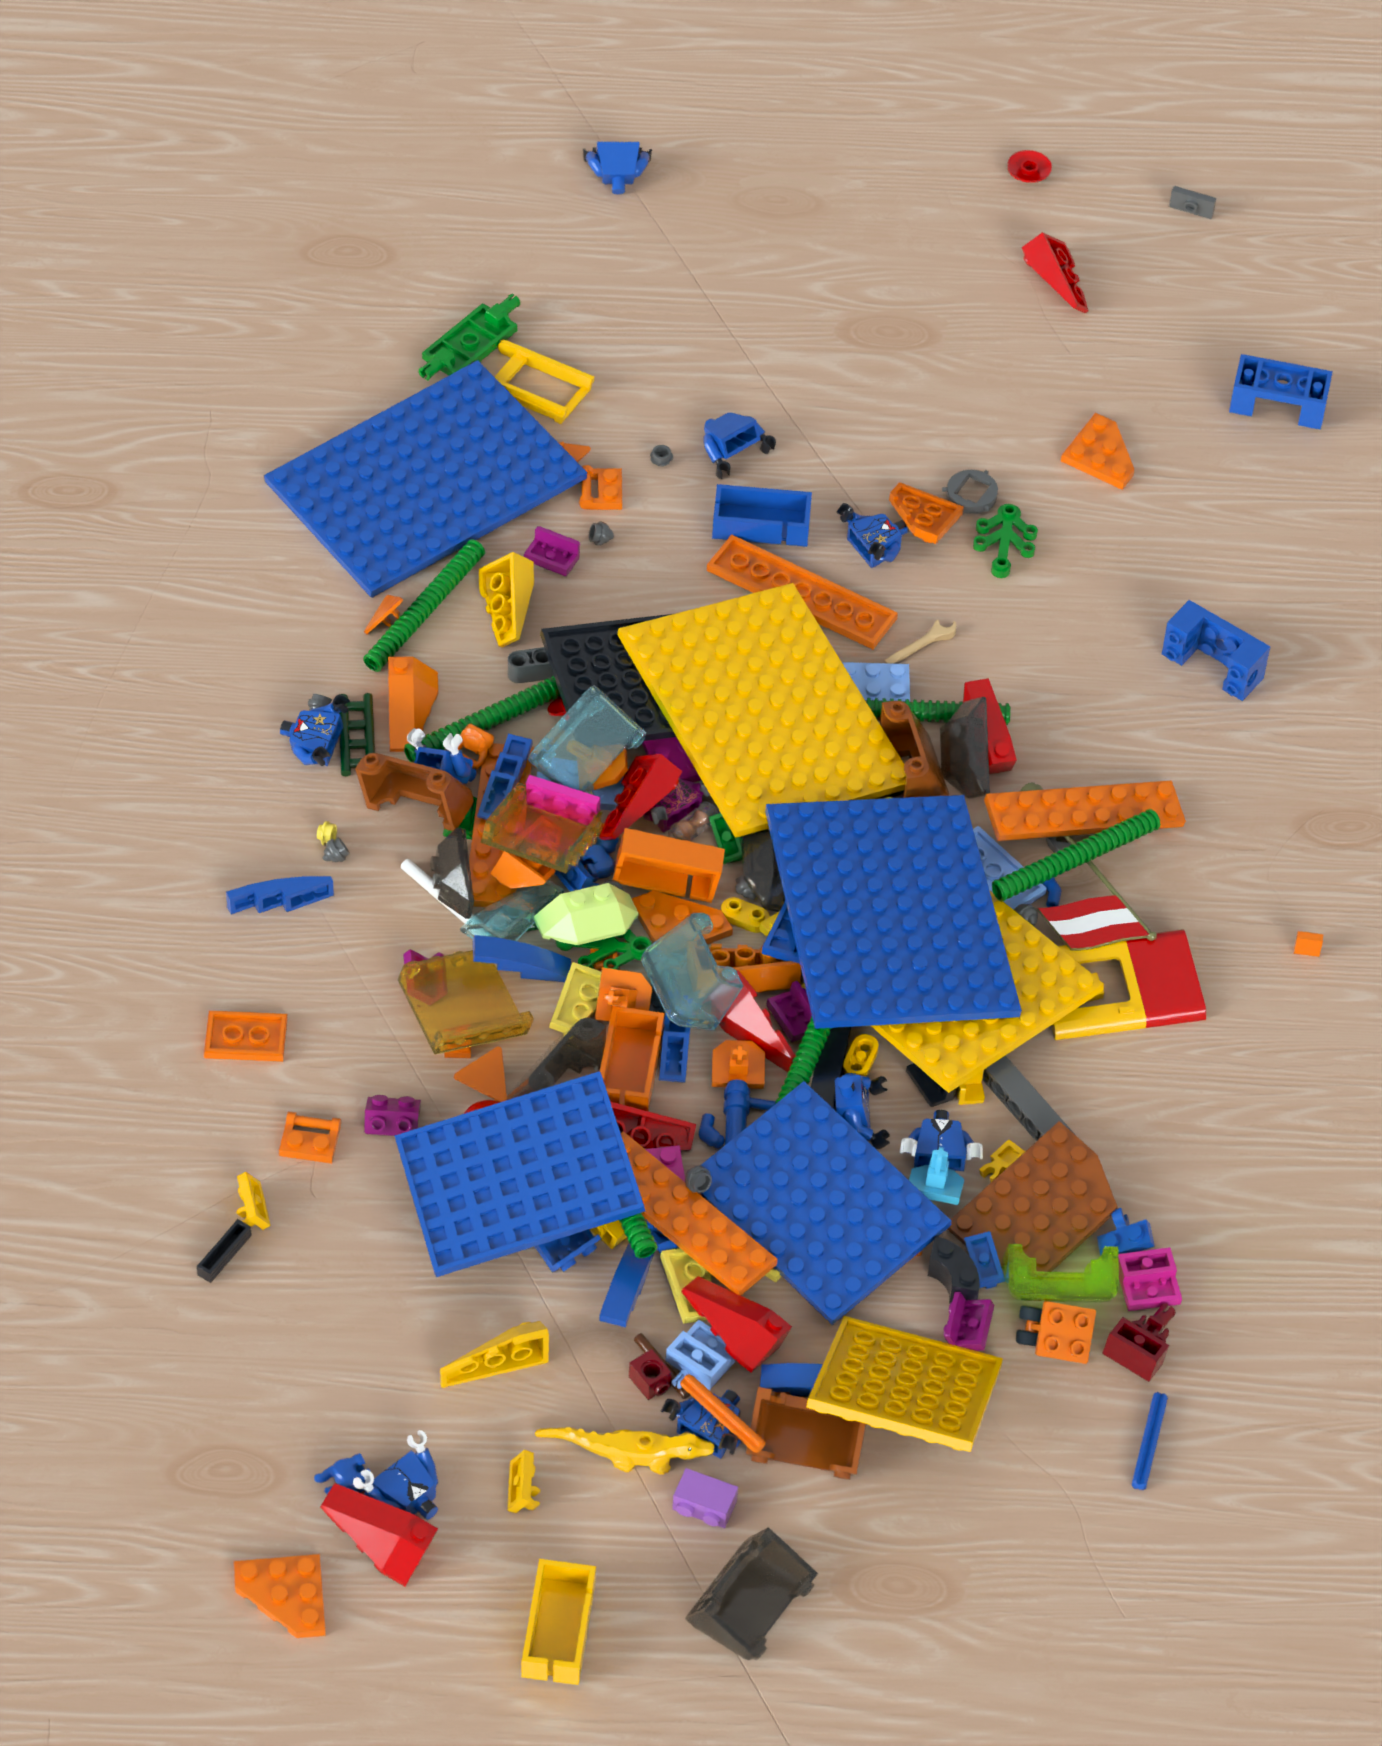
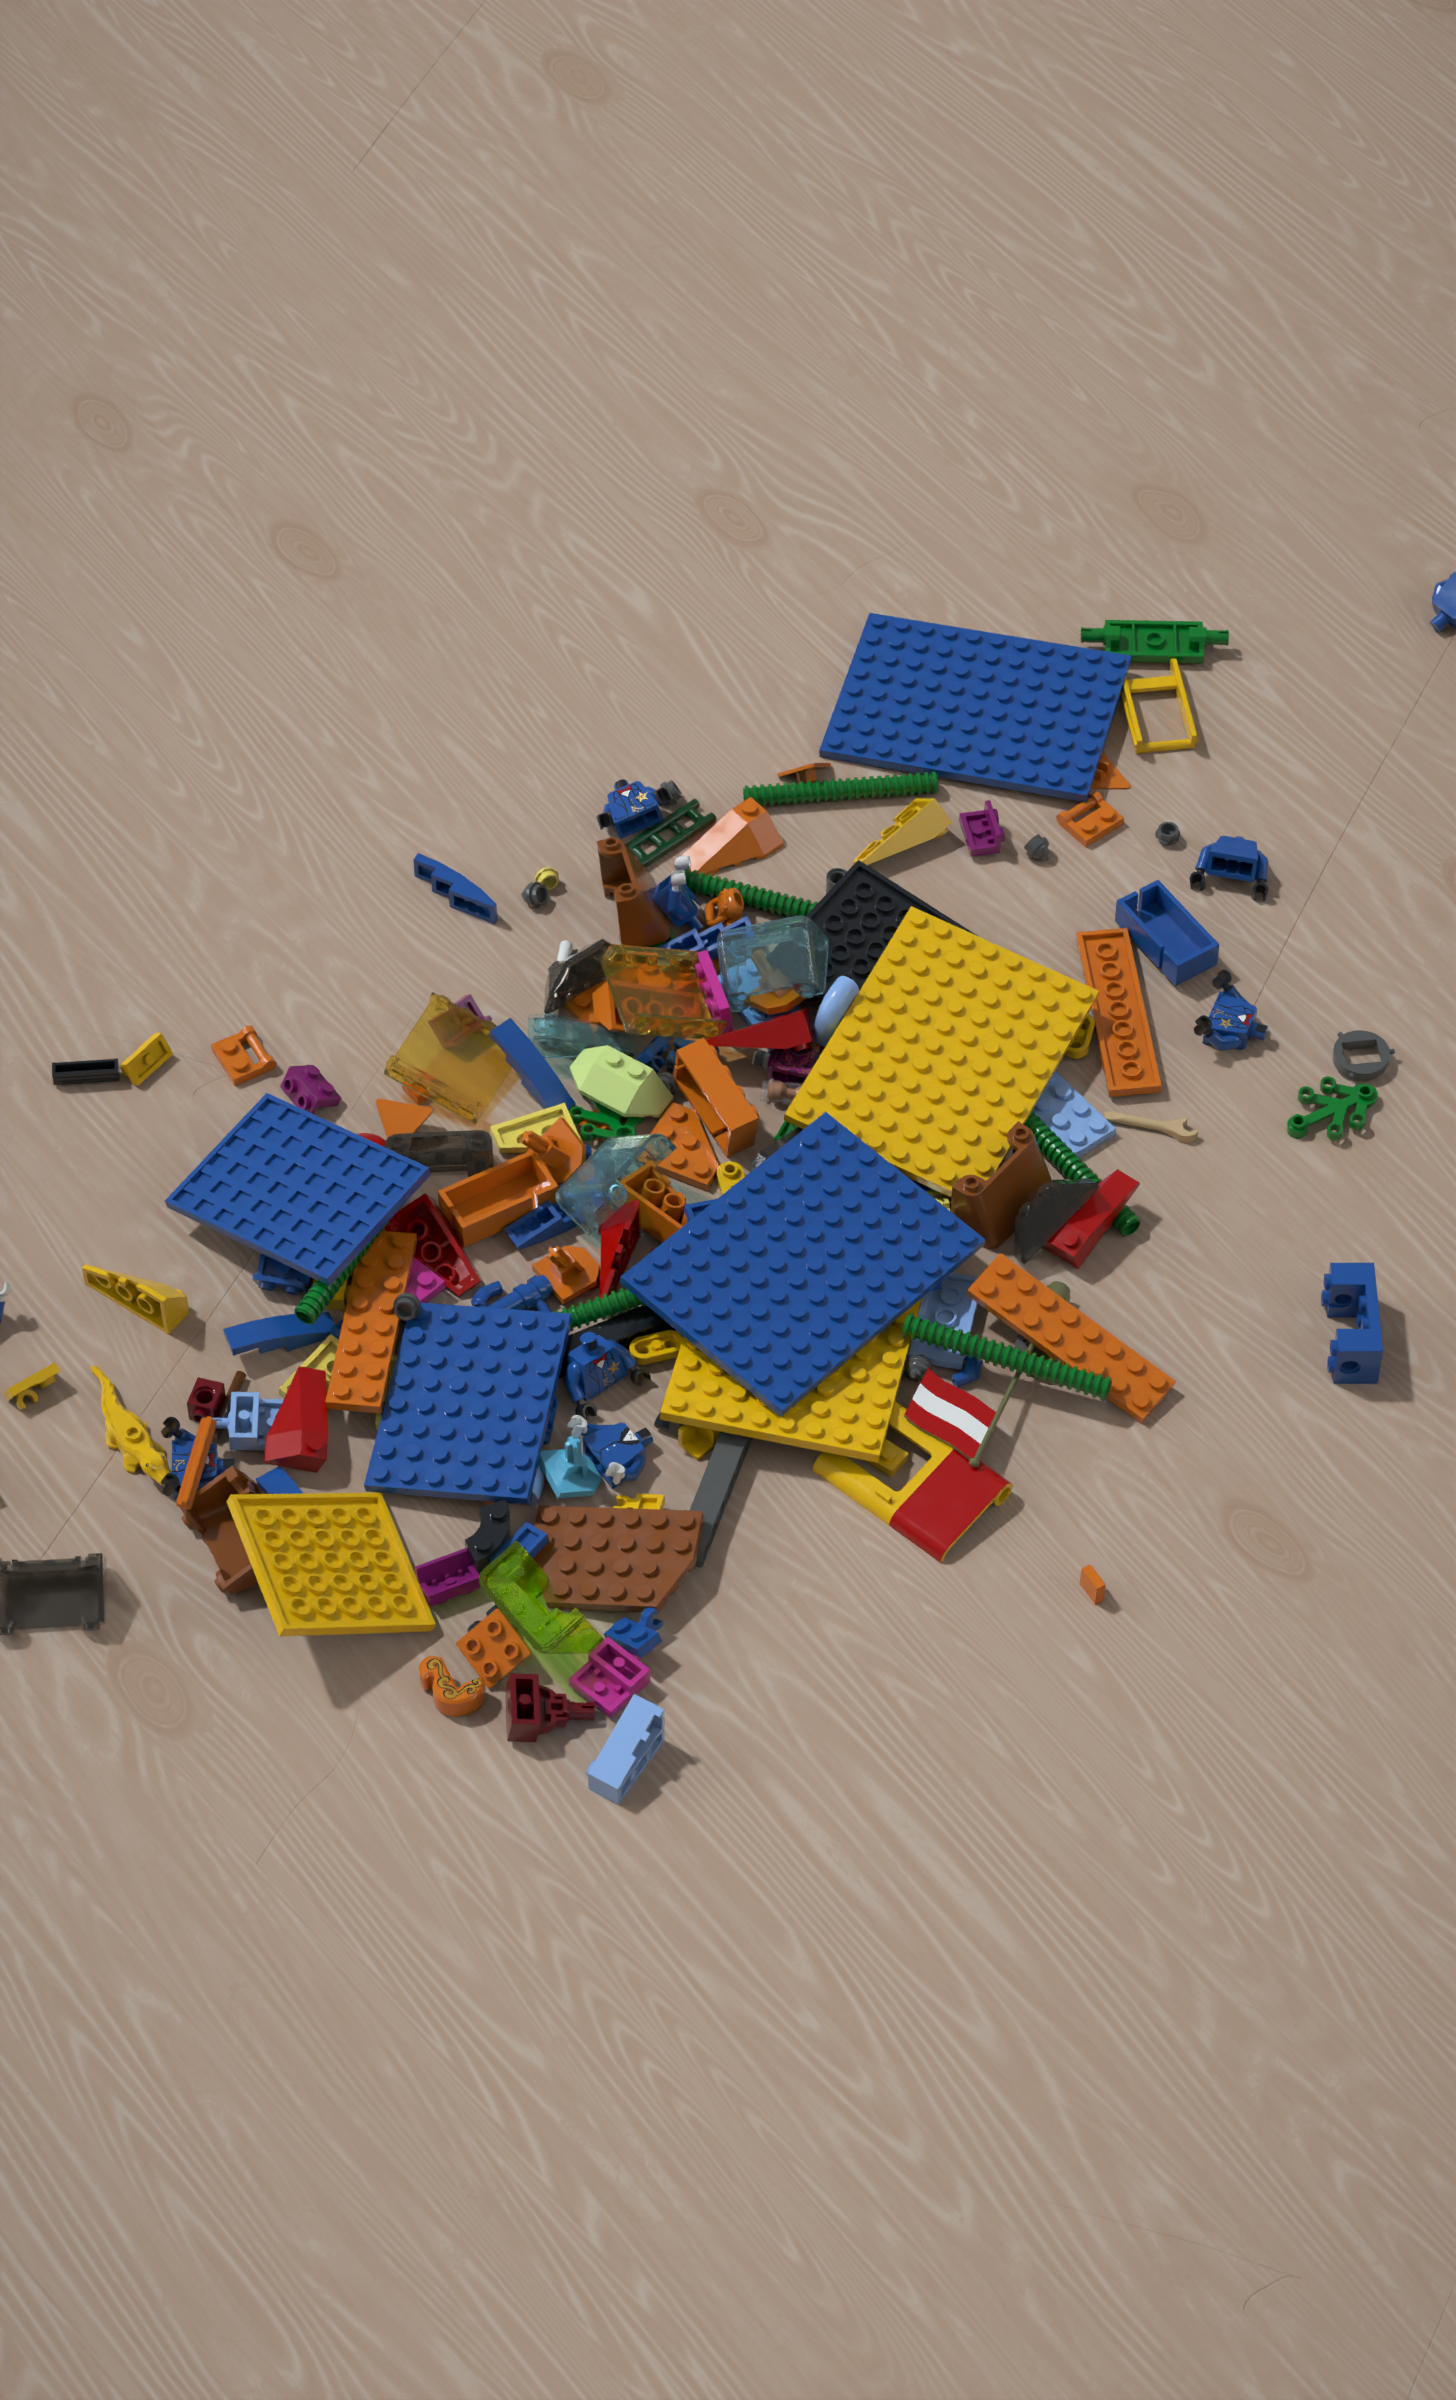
camera: 55 degrees right, 0 degrees up
(246, 1036) = (303, 958): orange tile -> none
(666, 734) = (834, 1008): none -> light blue cylinder
(705, 1498) = (118, 1508): medium lavender brick -> none
(924, 513) = (1294, 1036): orange plate -> none
(1072, 1391) = (446, 1696): none -> orange animal
(1149, 1441) = (446, 1776): blue axle -> none
(1226, 1309) = (627, 1750): none -> light blue wedge

